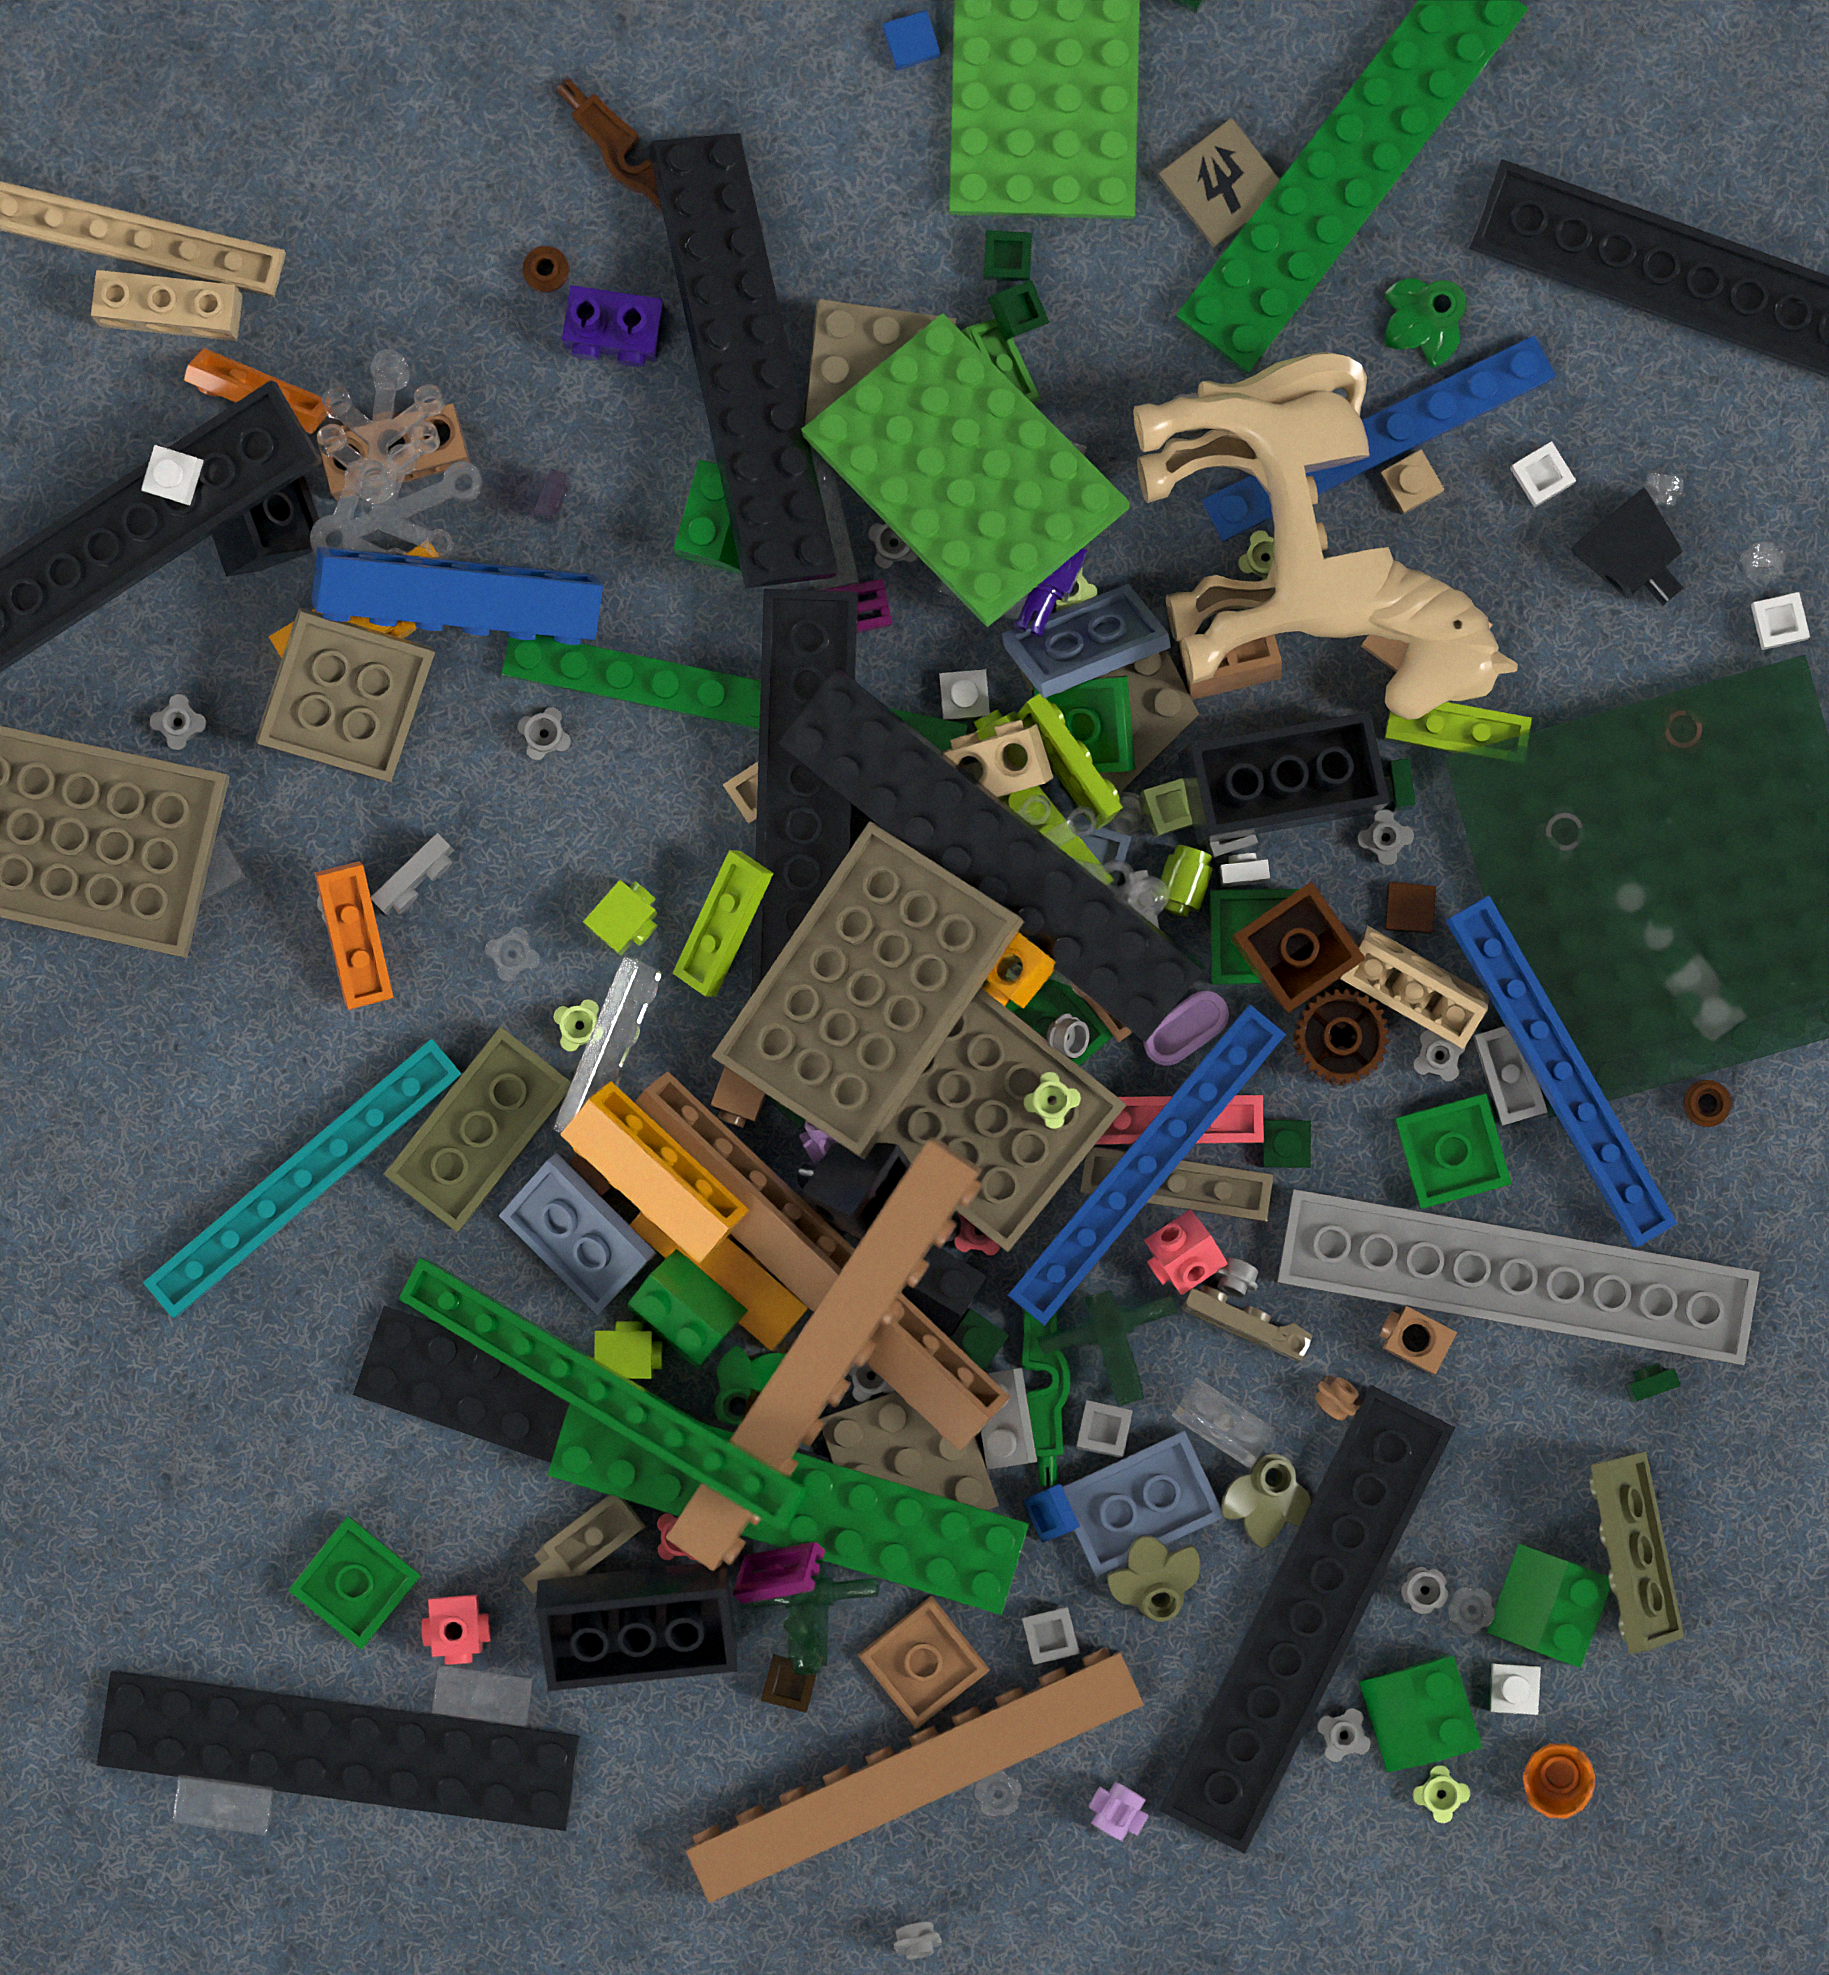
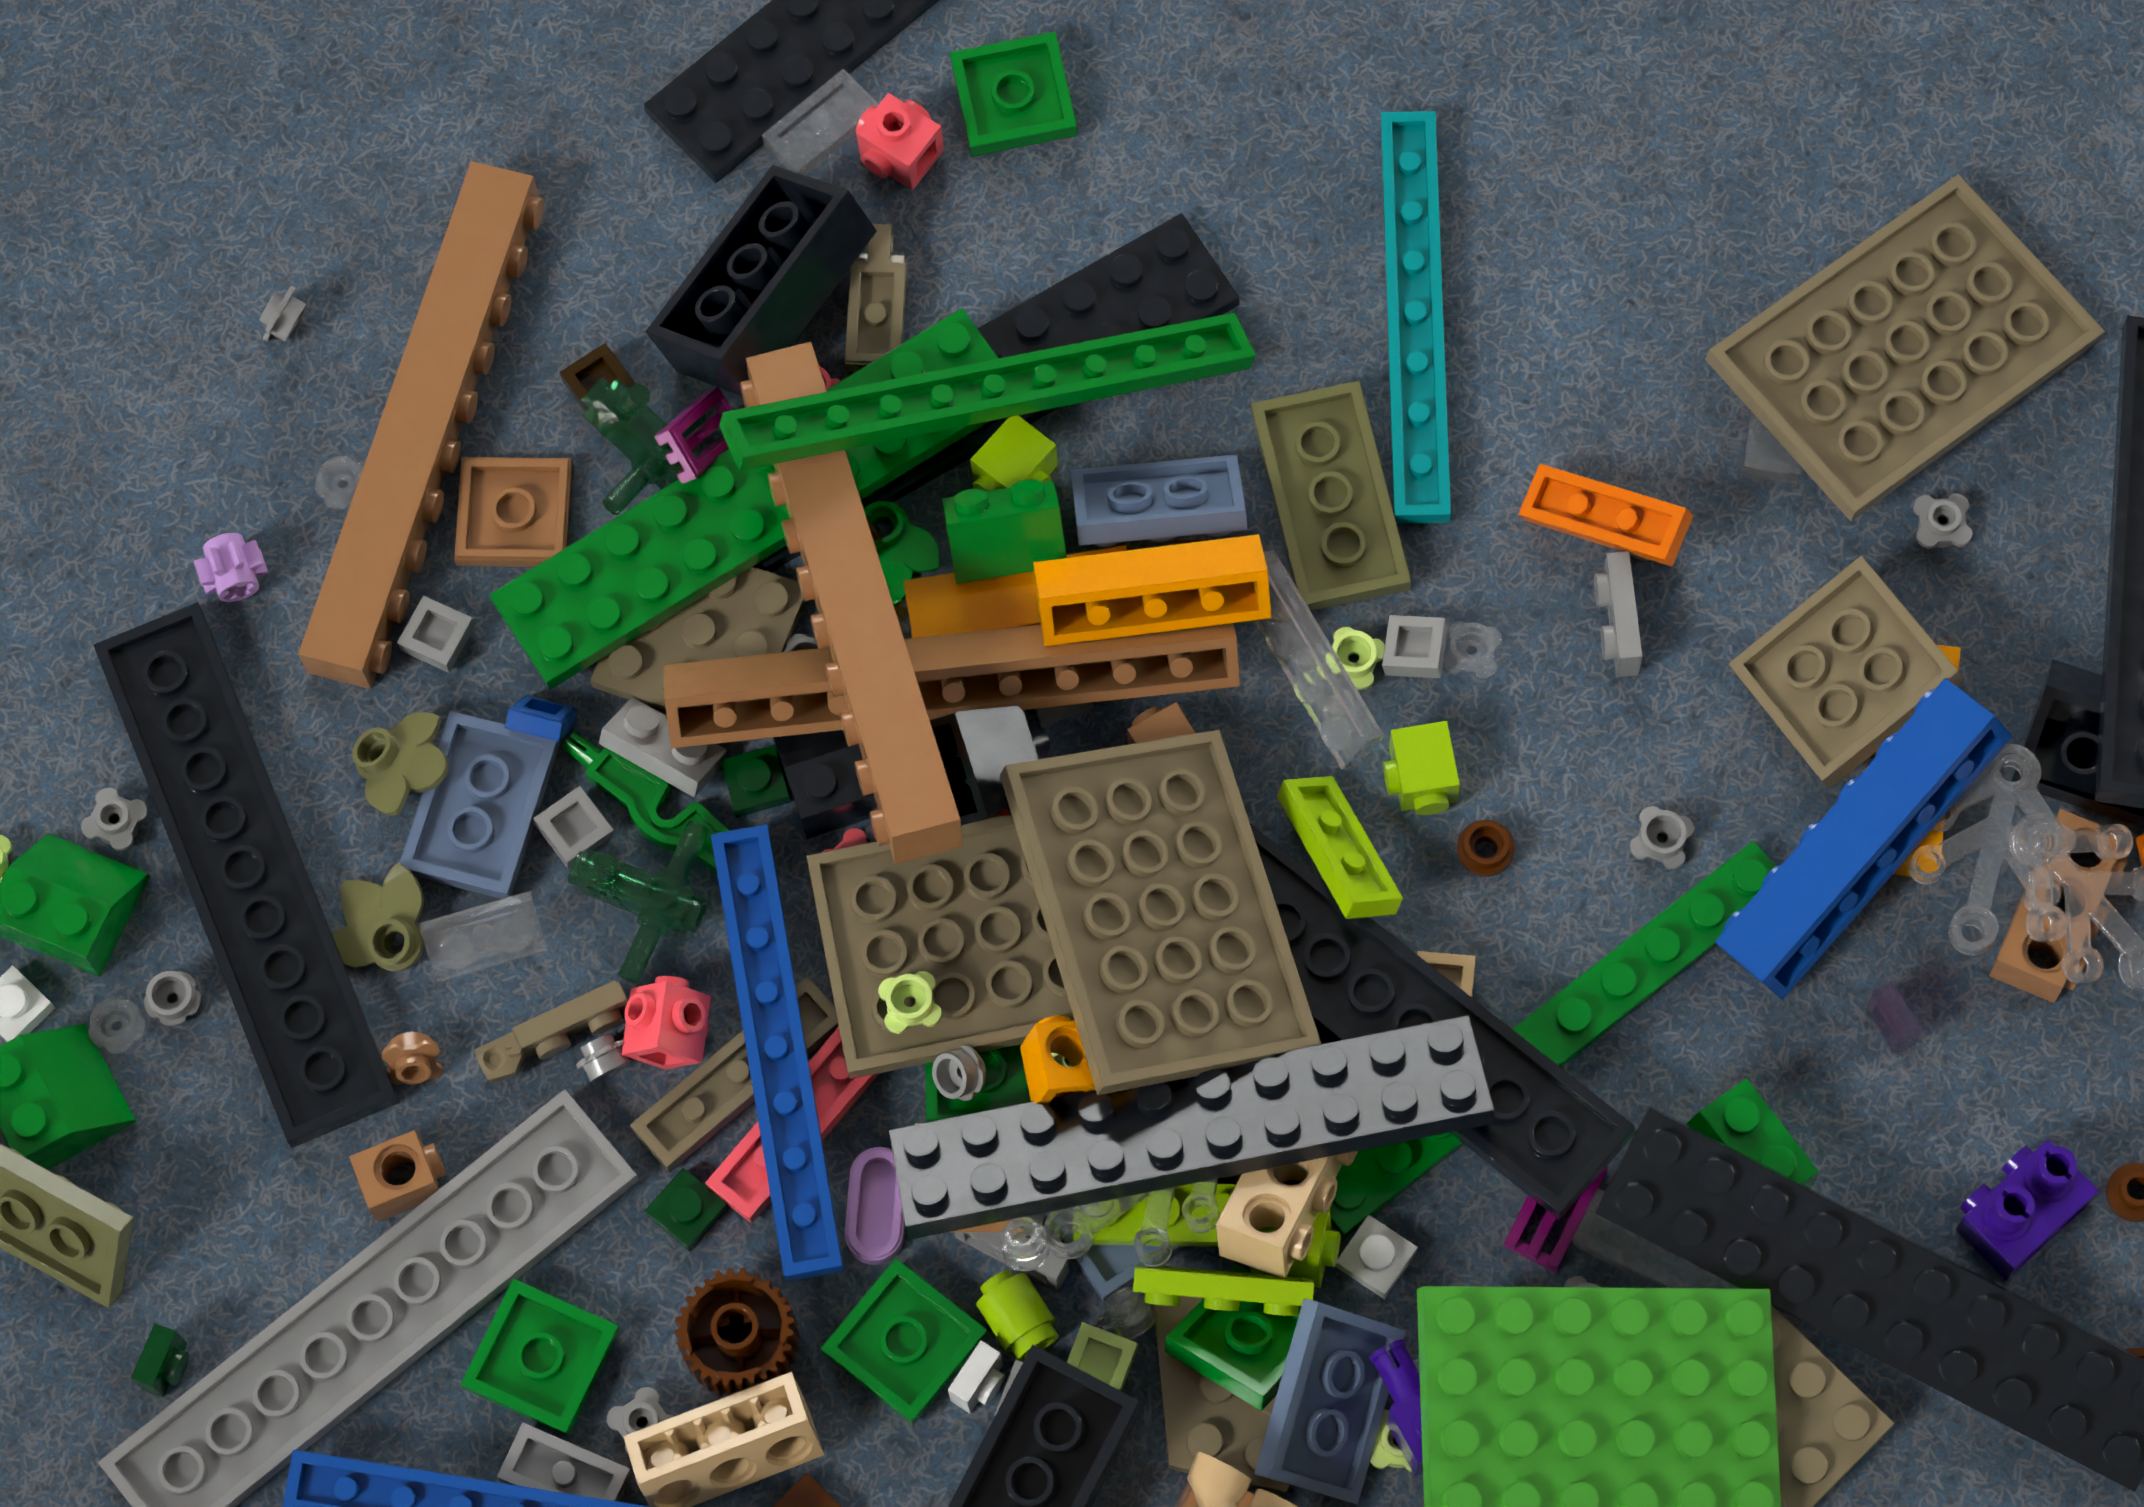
camera: 130 degrees right, 15 degrees down
(541, 989) = (1415, 646): none -> light grey plate
(635, 824) = (1491, 832): none -> reddish brown plate
(1298, 948) = (854, 1350): reddish brown slope -> none

